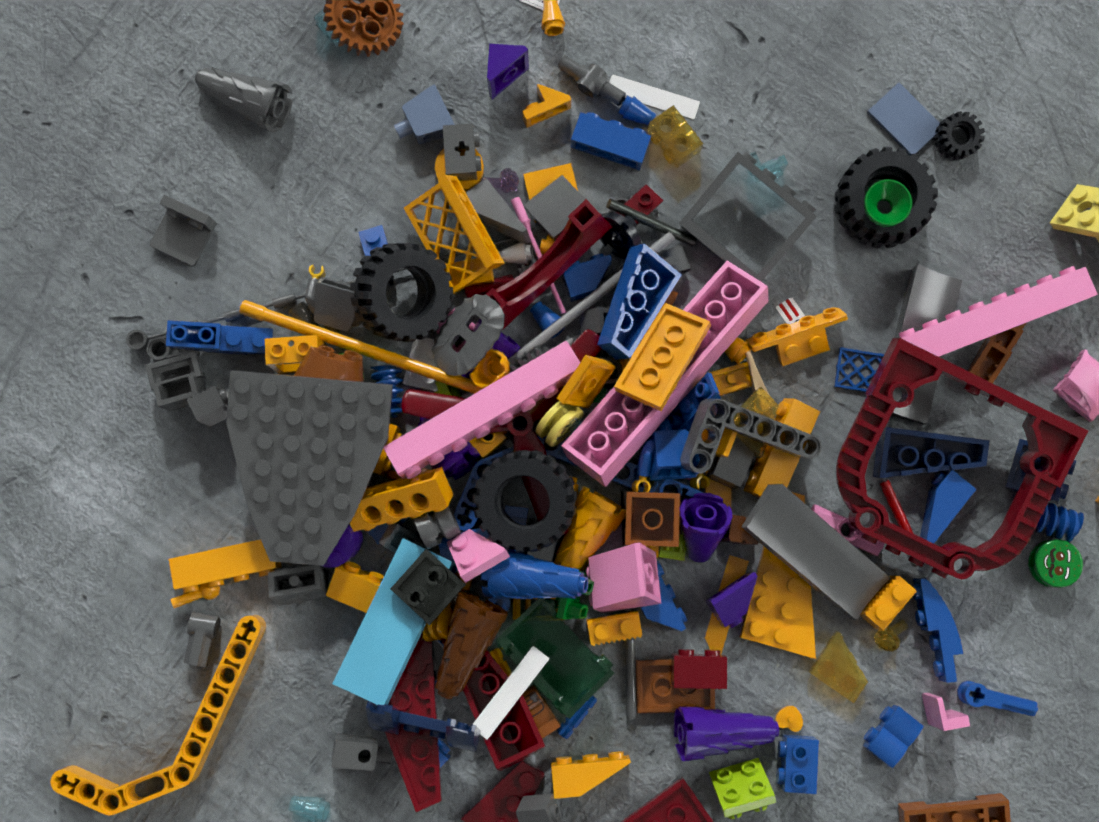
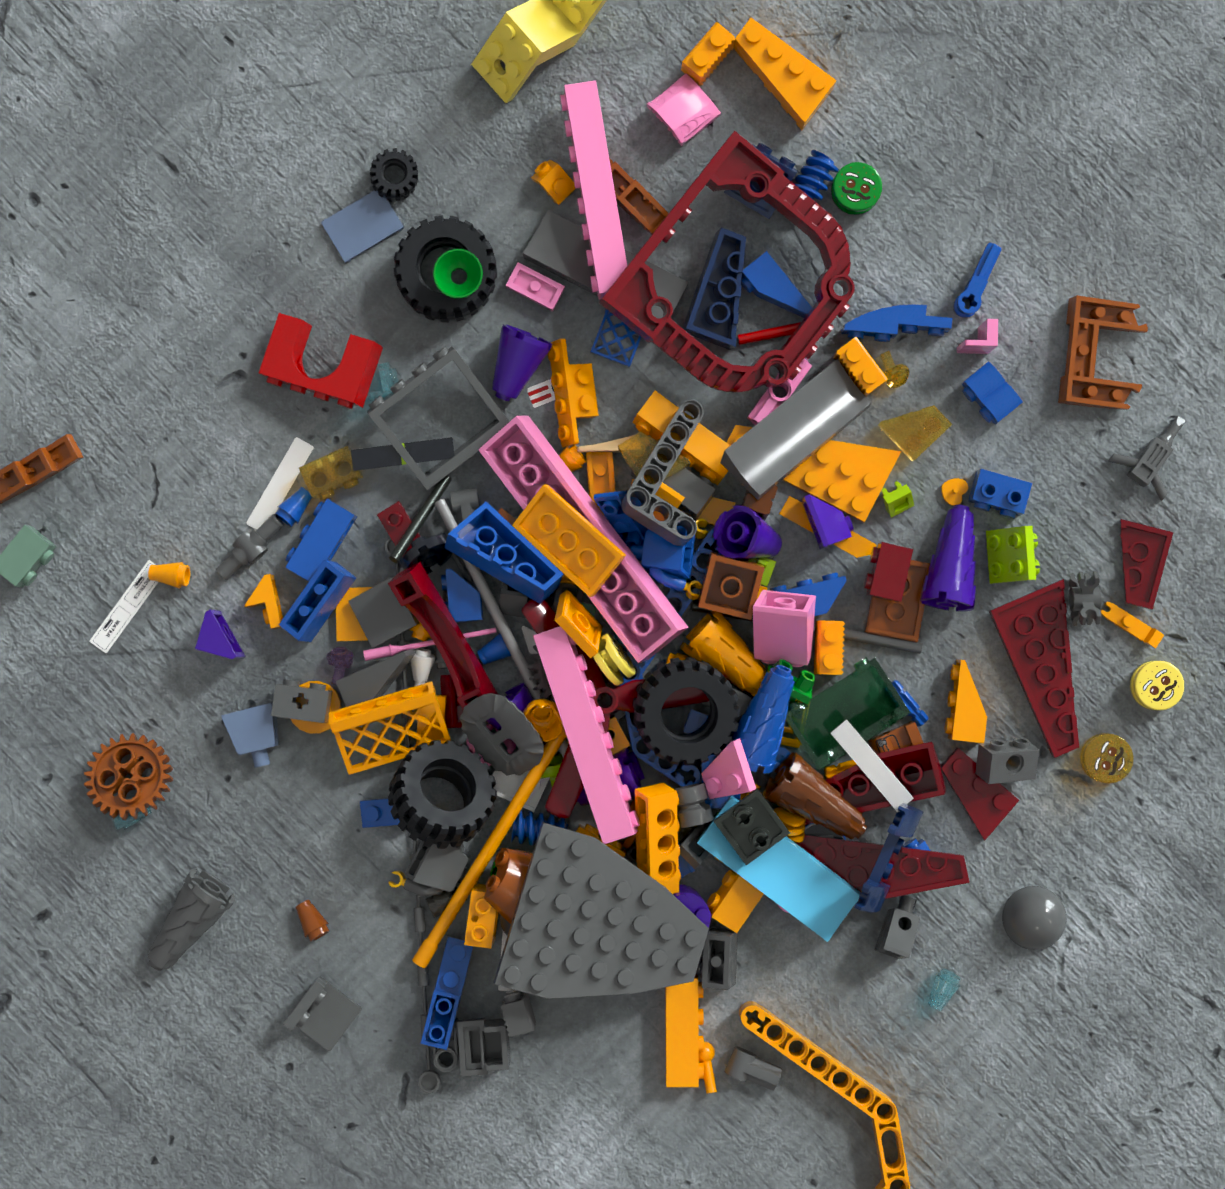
camera: 80 degrees left, 5 degrees up
(263, 205) = (311, 920): none -> dark orange cone
(555, 147) = (317, 601): none -> blue brick
(702, 179) = (388, 456): none -> black sticker
(759, 129) = (346, 384): none -> red arch
(769, 666) = (898, 500): none -> lime tile
(816, 280) = (517, 361): none -> dark purple cone
(888, 283) = (535, 286): none -> bright pink plate
(989, 280) = (553, 181): none -> light orange bracket

